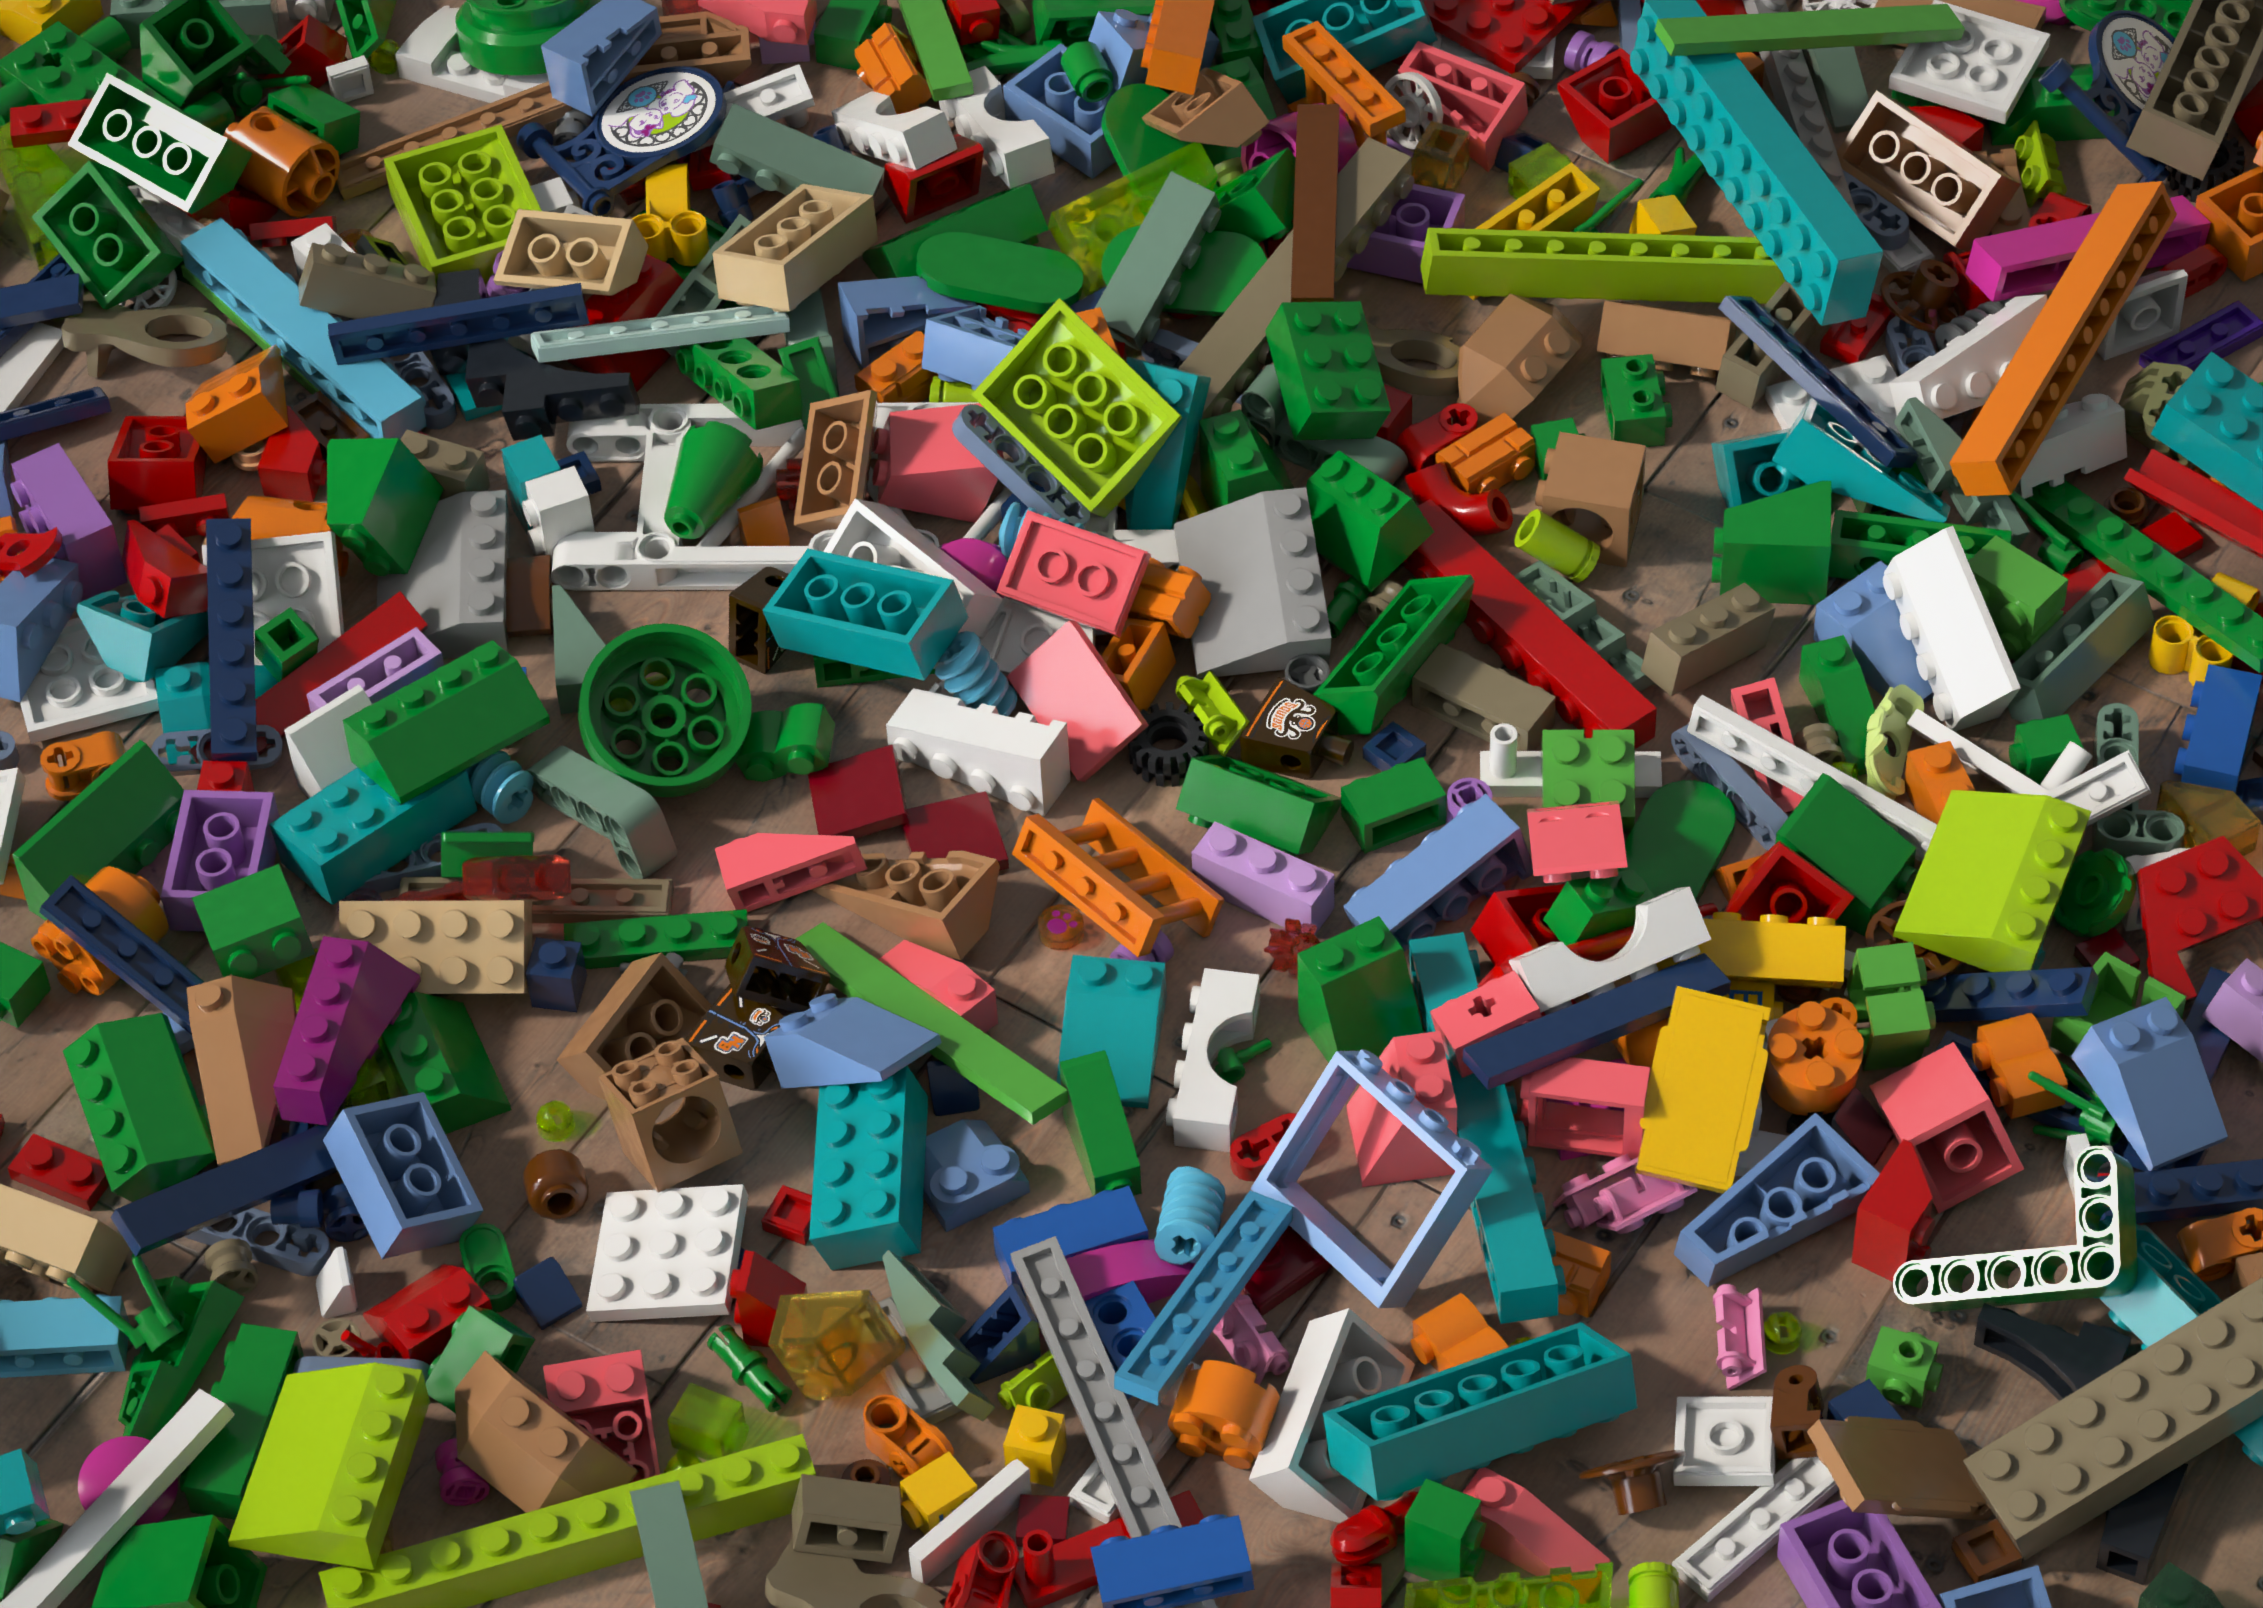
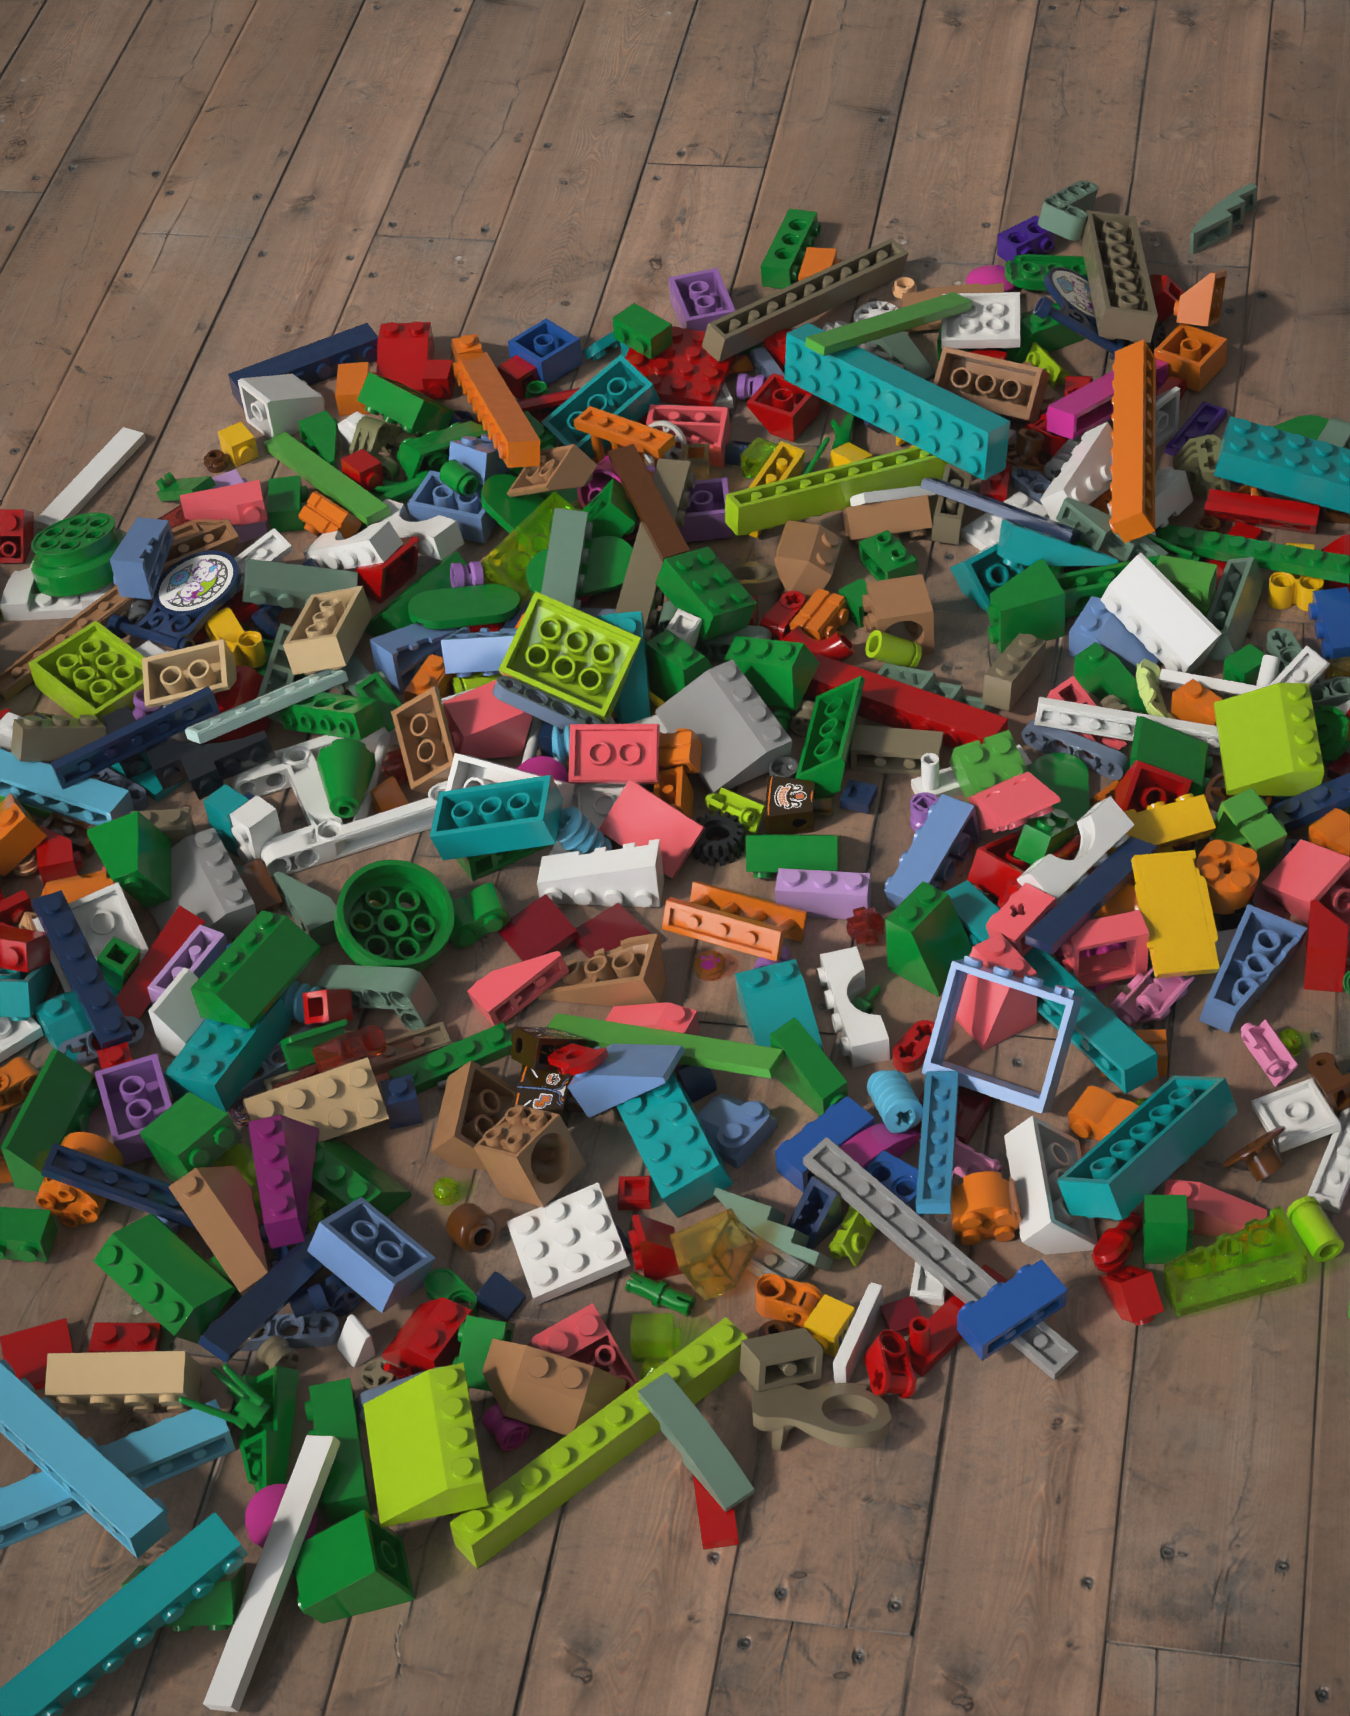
camera: 20 degrees left, 5 degrees down
(524, 805) = (327, 1006): none -> red brick
(749, 631) = (416, 843): dark brown torso -> none
(793, 1002) = (577, 1059): none -> red piece
(1026, 225) = (466, 575): none -> medium lavender wheel
(1037, 1441) = (874, 1266): yellow brick -> none
(1271, 414) = (685, 626): none -> white slope
(1393, 805) = (877, 826): green piece -> none
(1670, 301) = (887, 495): none -> white tile

